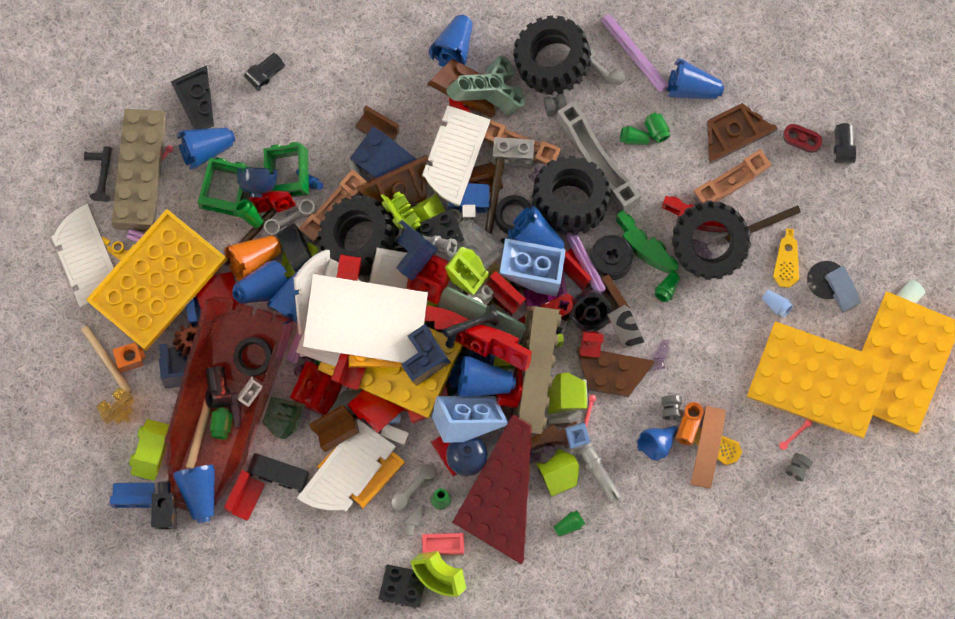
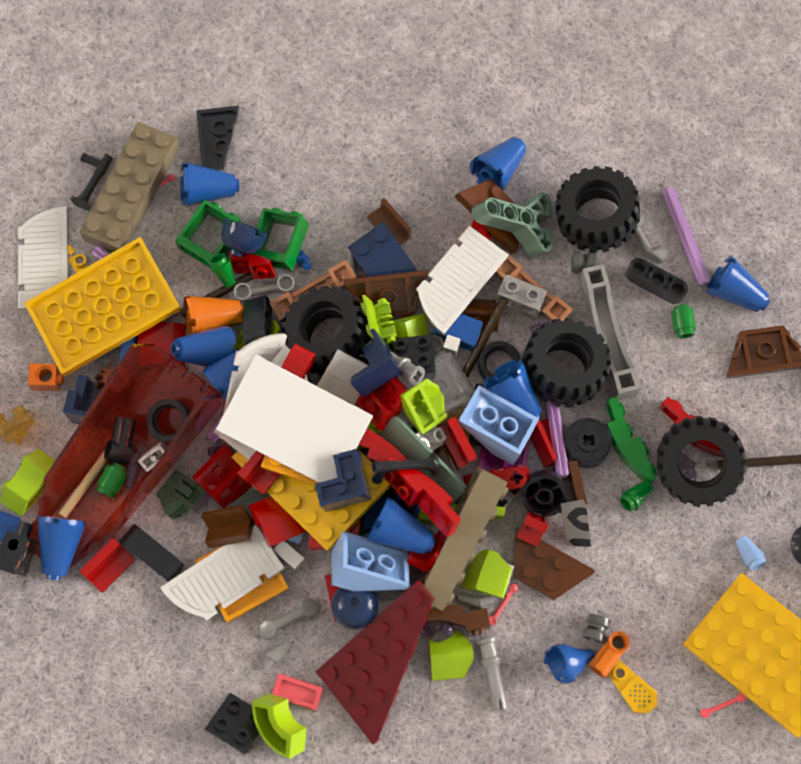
camera: 20 degrees right, 0 degrees up
(106, 359) = (23, 372): tan bar -> none
(261, 74) = (290, 132): black piece -> none
(441, 503) = (315, 647): green cone -> none
(569, 524) = (441, 718): green cone -> none
(577, 435) = (481, 625): medium blue tile -> none
(633, 98) = (667, 280): none -> black beam
(633, 136) = (655, 322): green cone -> none
(661, 354) = (605, 565): clear purple bar -> none
(708, 447) = (622, 686): nougat slope -> none
(734, 179) = (747, 403): nougat slope -> none
(787, 257) = (778, 507): yellow piece -> none
(799, 466) = (714, 744): dark grey wheel -> none

